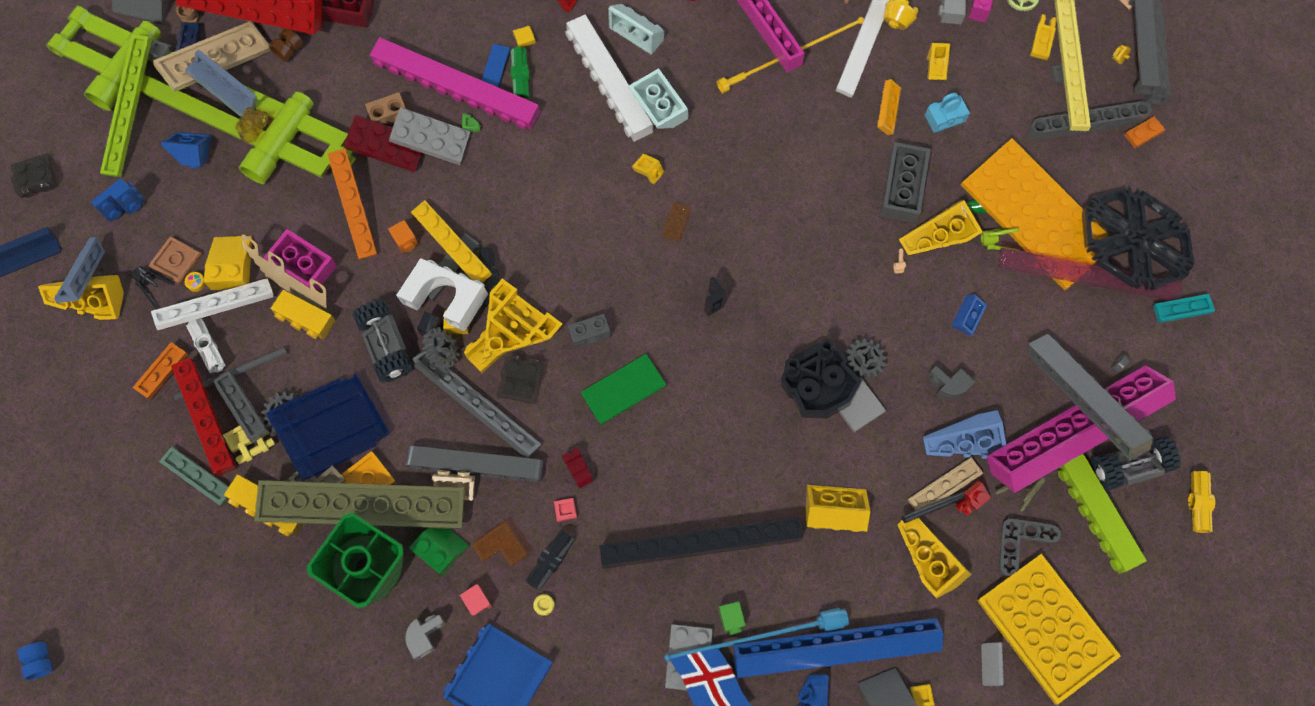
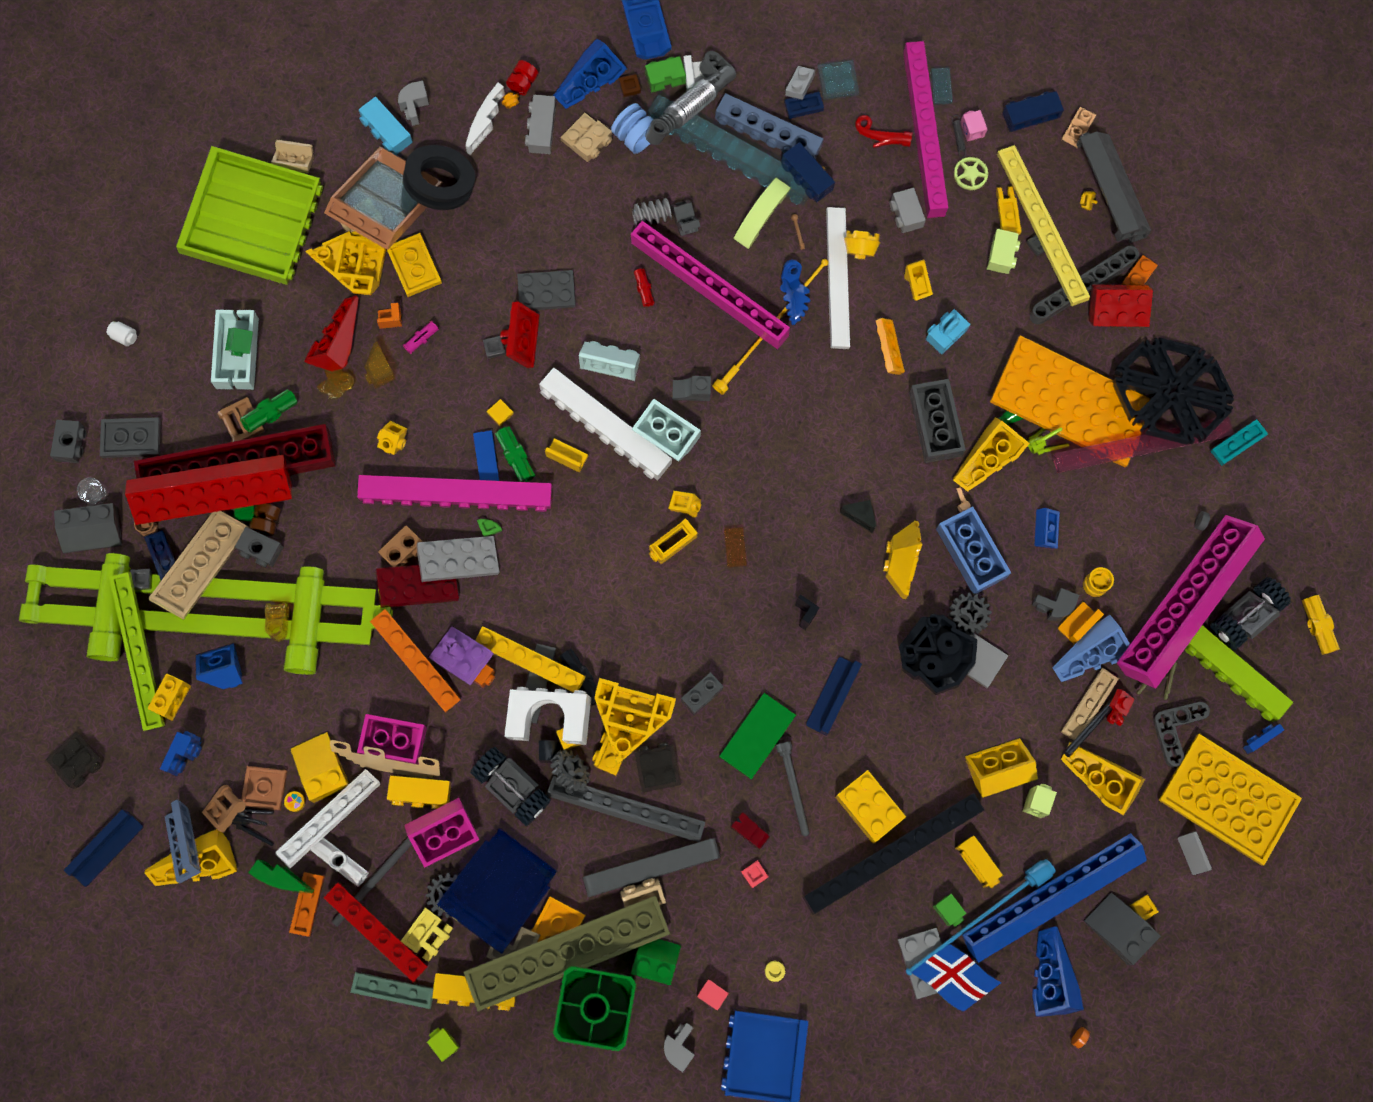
camera: 25 degrees left, 5 degrees up
(127, 262) = (219, 813): none -> medium nougat plate
(135, 154) = (169, 697): none -> yellow bracket
(147, 336) = (279, 877): none -> green slope
(214, 540) = (442, 1043): none -> lime brick
(221, 83) = (228, 592): sand blue fence -> none
(240, 406) = (404, 906): dark grey tile -> none
(266, 57) = (250, 539): none -> dark grey brick
(271, 33) = (244, 513): none -> green tile
(302, 355) = (441, 832): none -> dark pink brick
(393, 214) = (461, 655): none -> medium lavender plate
(422, 20) = (392, 438): none -> yellow brick
(501, 540) = (711, 928): clear orange plate -> none
(549, 560) = (762, 928): black piece -> none
(564, 91) = (566, 455): none -> yellow panel
(624, 200) = (657, 554): none -> yellow window
(642, 410) = (785, 751): none -> dark grey piece
(698, 492) = (870, 807): none -> yellow brick
(699, 78) = (692, 389): none -> dark grey arch
(708, 382) = (833, 695): none -> dark blue panel
(779, 585) = (979, 862): none -> yellow window
(801, 235) = (861, 514): none -> pearl dark grey slope
(821, 285) = (903, 558): none -> yellow wedge
(823, 32) = (794, 291): none -> blue plant
(860, 551) = (1039, 801): none -> yellowish green brick
(891, 305) = (973, 550): none -> medium blue brick
(966, 408) = (1079, 622): none -> light orange panel
(998, 378) = (1098, 582): none -> yellow wheel
(1025, 65) = (1003, 251): none -> yellowish green brick
(1090, 397) = (1188, 570): dark grey brick -> none
(1110, 581) = (1269, 733): none -> blue plate
(1116, 147) = (1120, 305): none -> red brick

